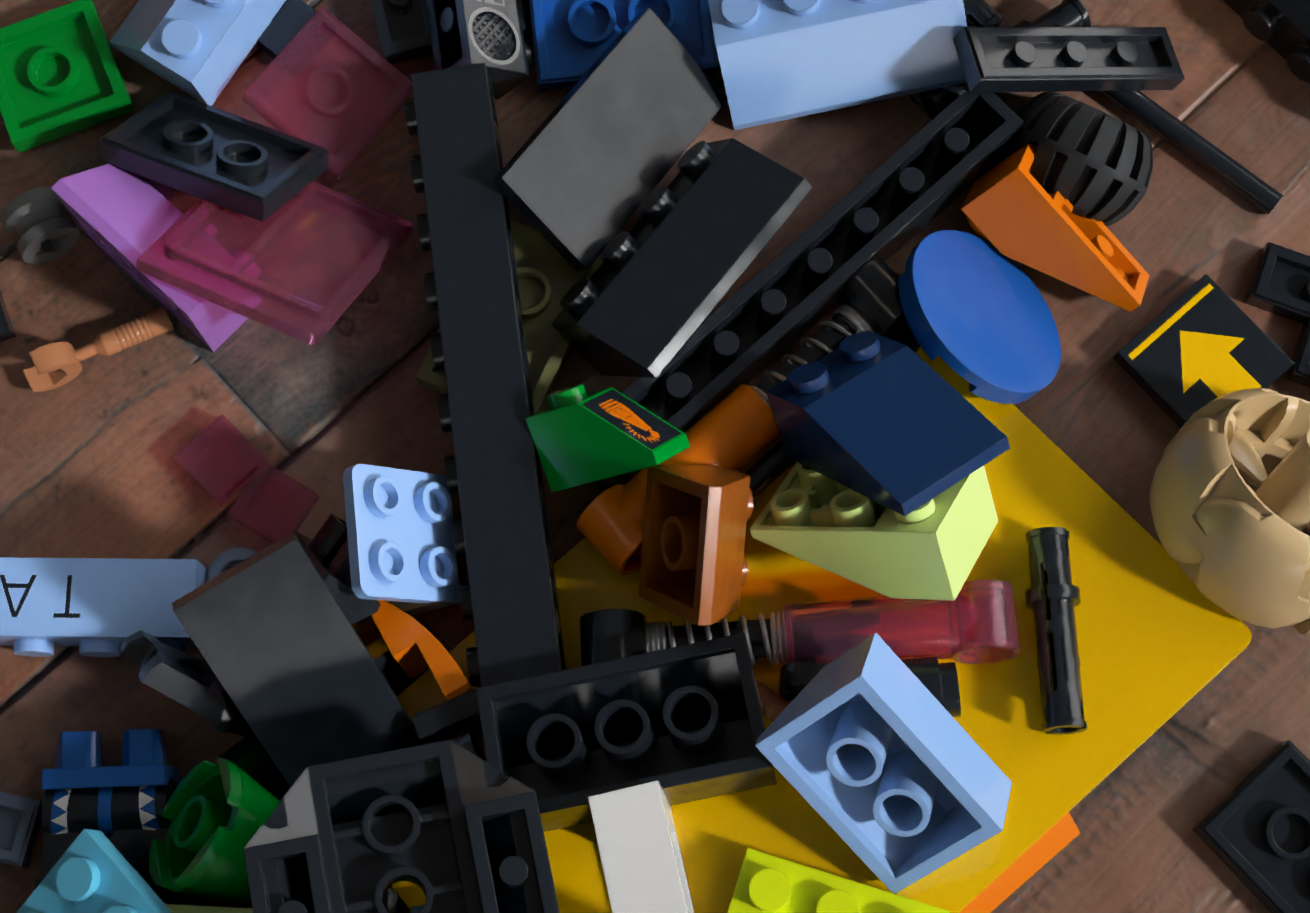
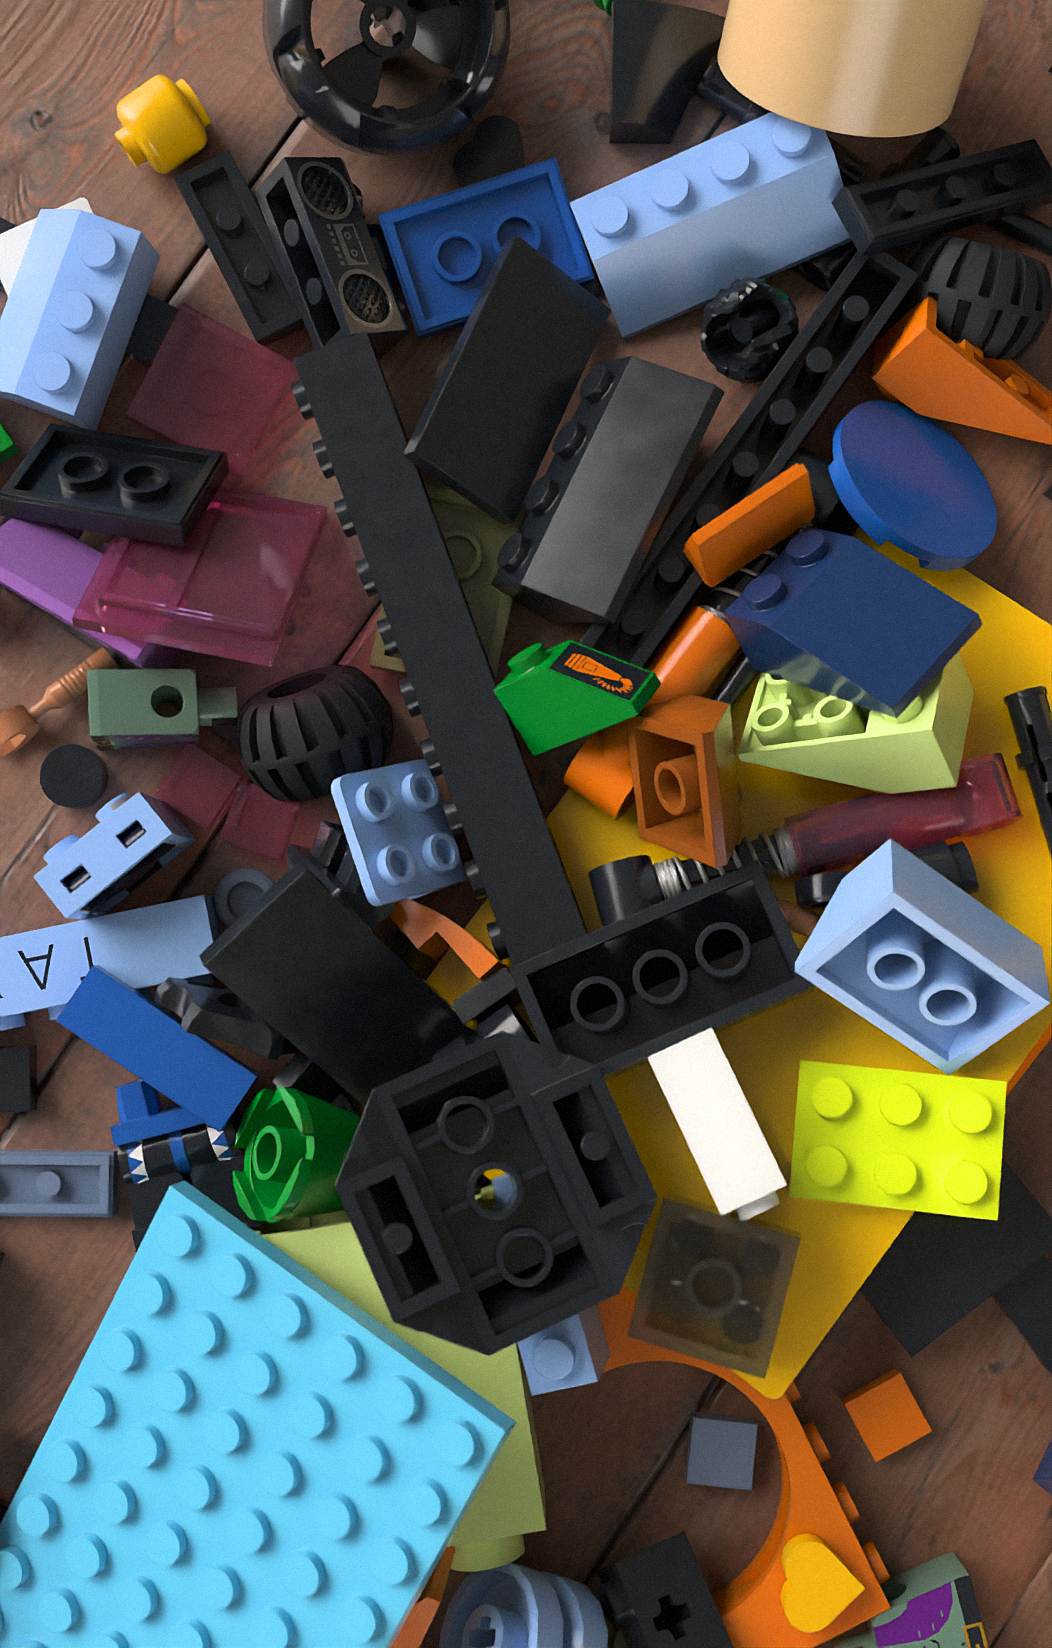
camera: 10 degrees left, 10 degrees up
(102, 424) = (73, 776): none -> black tile
(111, 698) = (157, 1048): none -> blue tile
(119, 502) = (114, 857): none -> light blue piece
(173, 357) = (126, 701): none -> sand green torso
(343, 422) = (313, 731): none -> black wheel
(811, 316) = (752, 526): none -> orange slope
(851, 139) = (748, 329): none -> black piece

